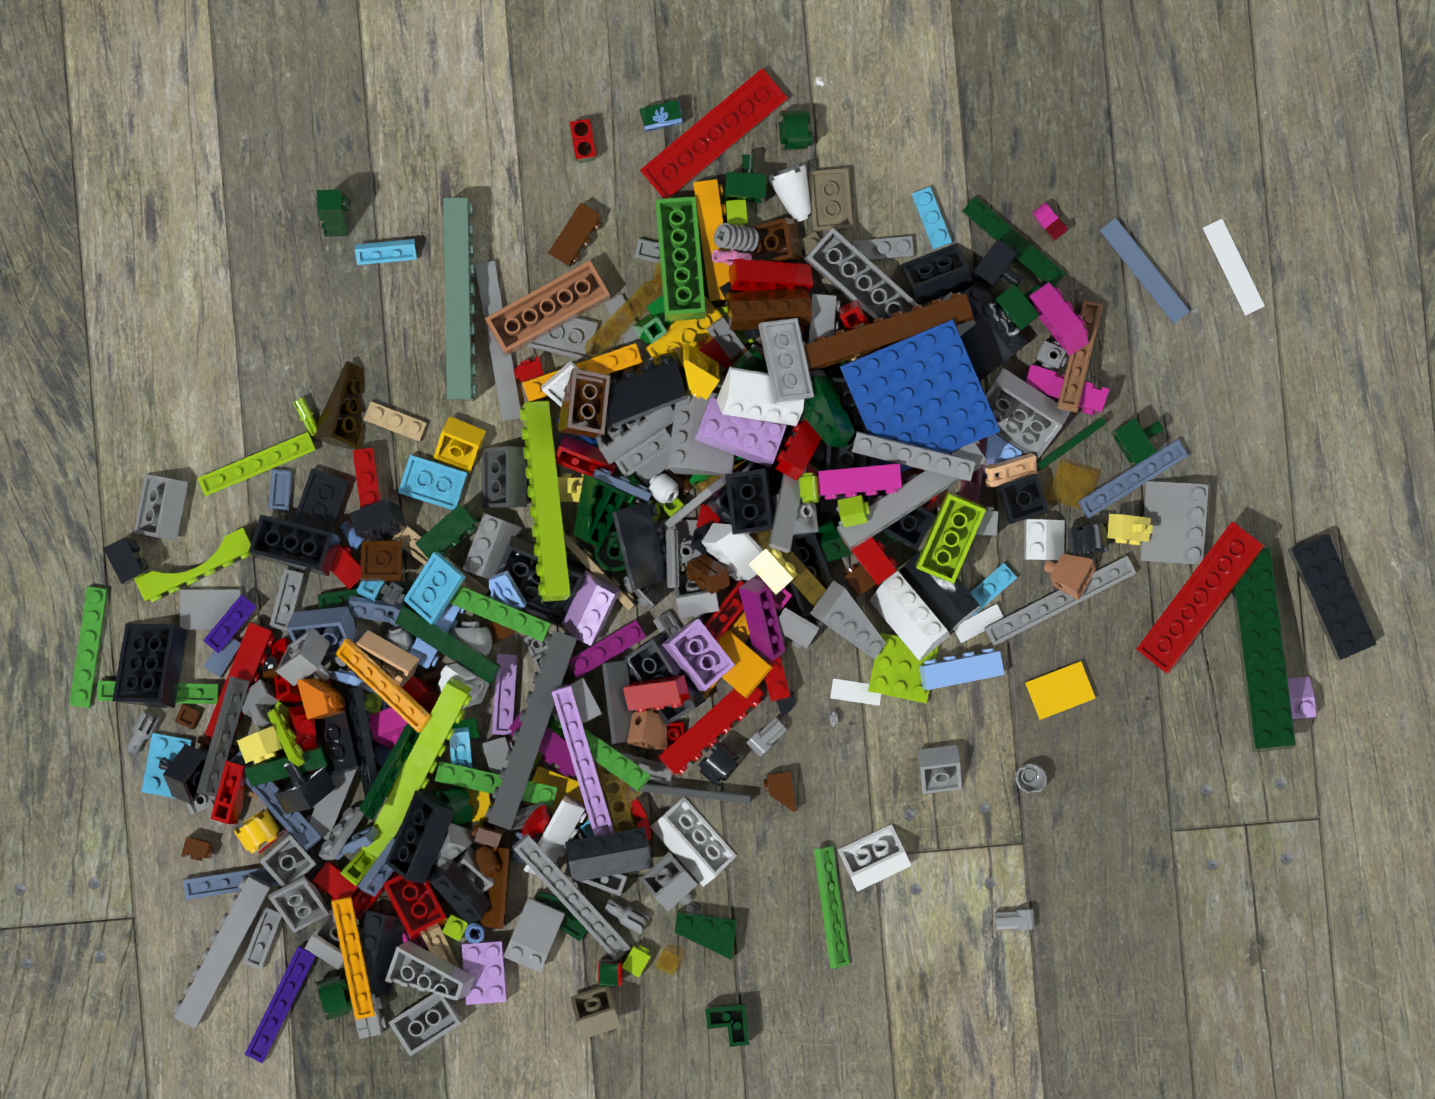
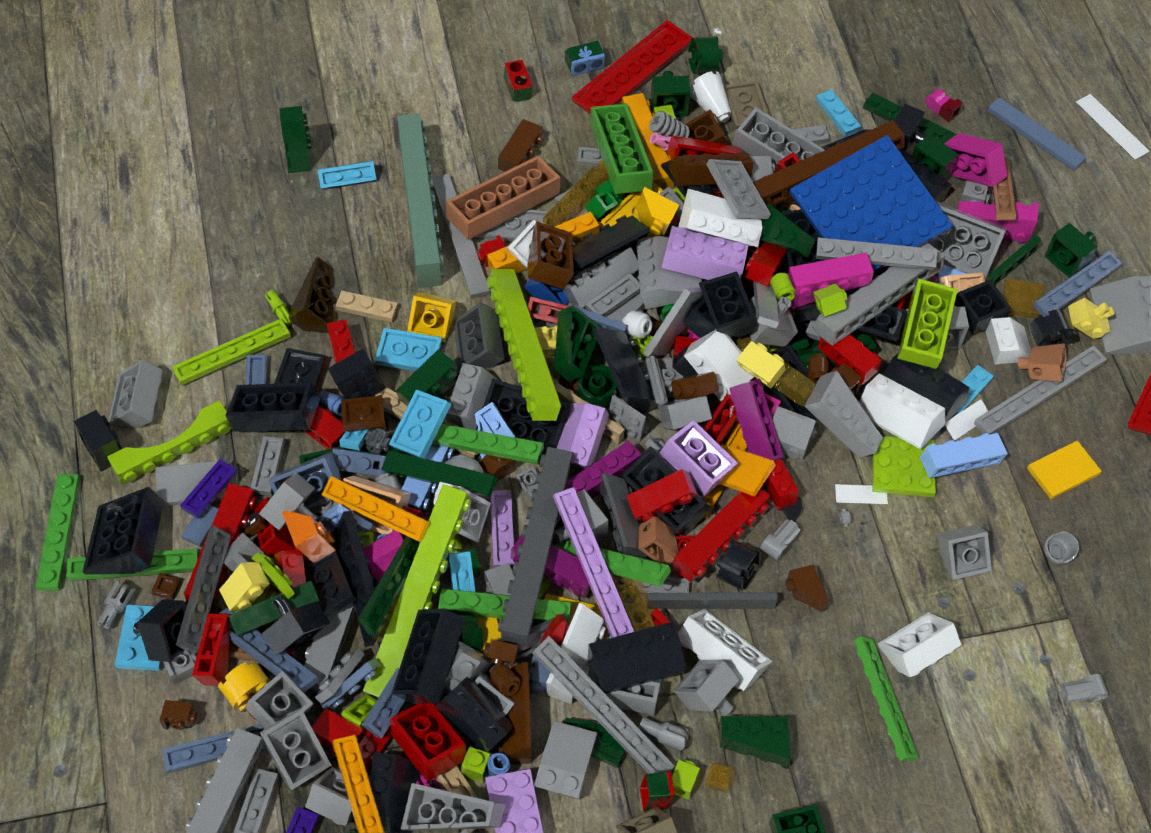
camera: 10 degrees left, 30 degrees down
(834, 567) = (817, 367): none -> reddish brown brick

